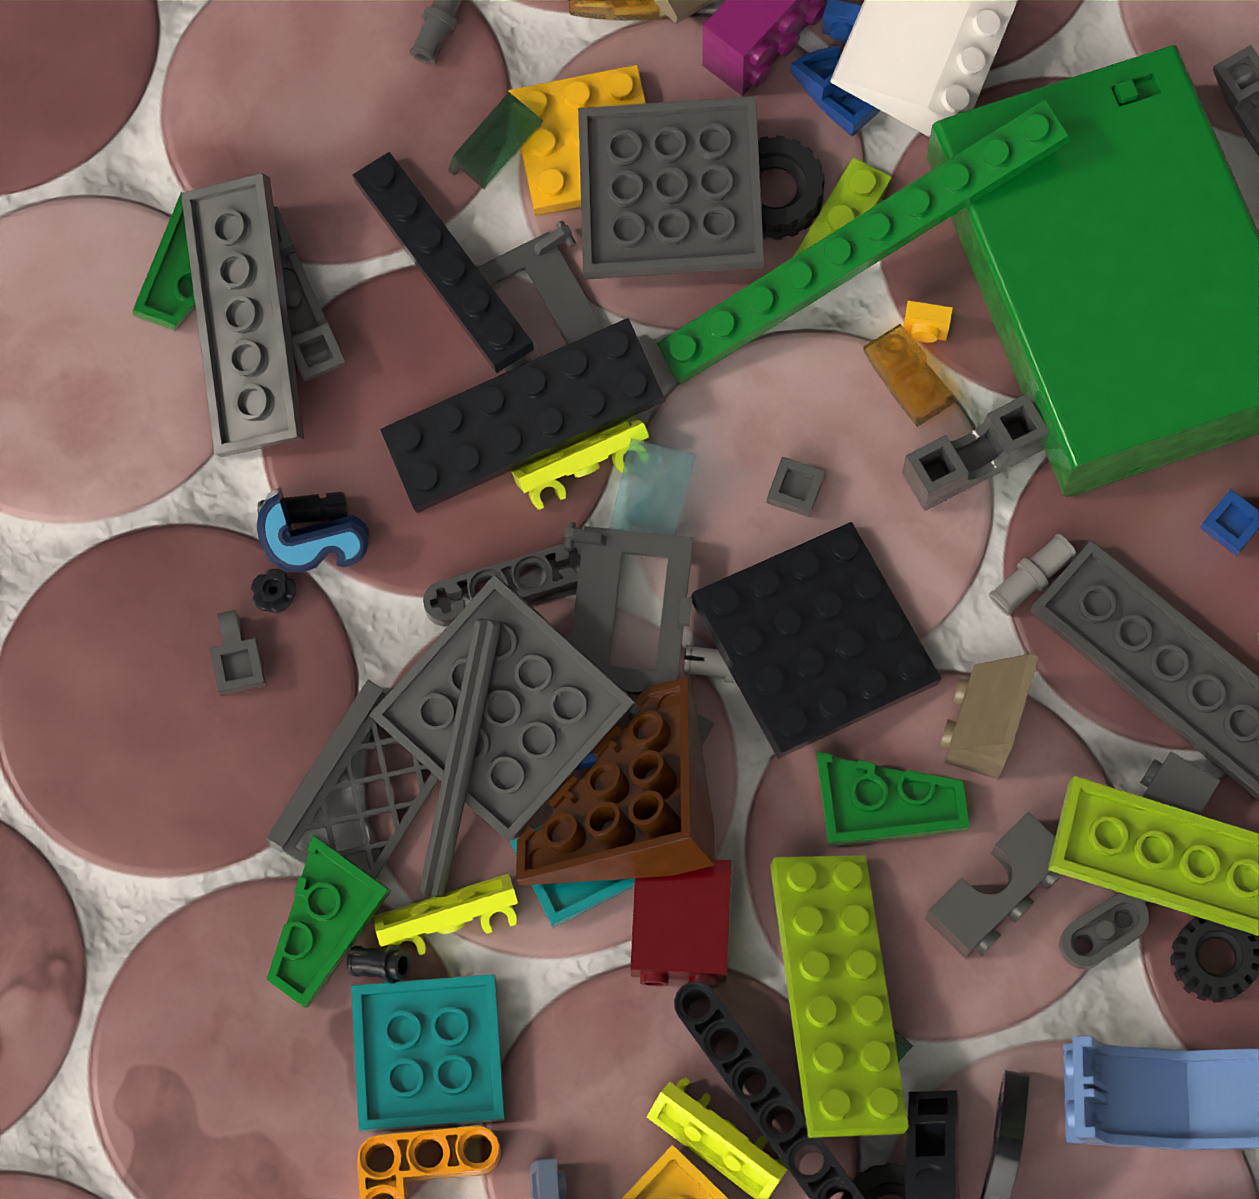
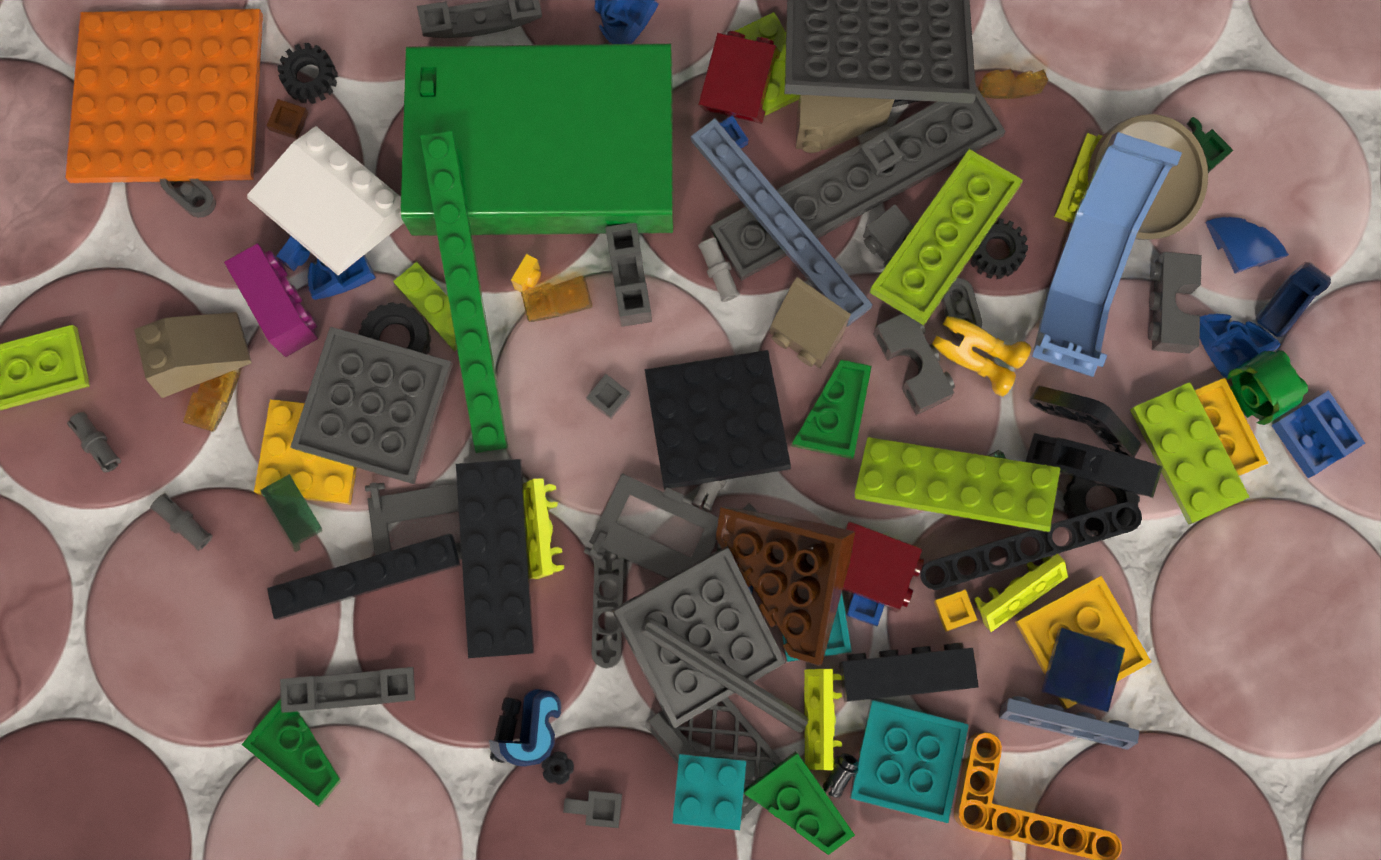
camera: 75 degrees left, 5 degrees up
(242, 315) = (351, 728): dark grey plate -> none
(298, 786) = (709, 792): none -> teal plate
(547, 1014) = (908, 674): none -> black brick
(616, 927) = (865, 610): none -> blue plate
(652, 488) = (579, 489): clear light blue plate -> none
(659, 1054) = (955, 610): none -> yellow plate
(1031, 955) = (974, 336): none -> yellow piece
(1129, 631) = (779, 220): none -> sand blue plate

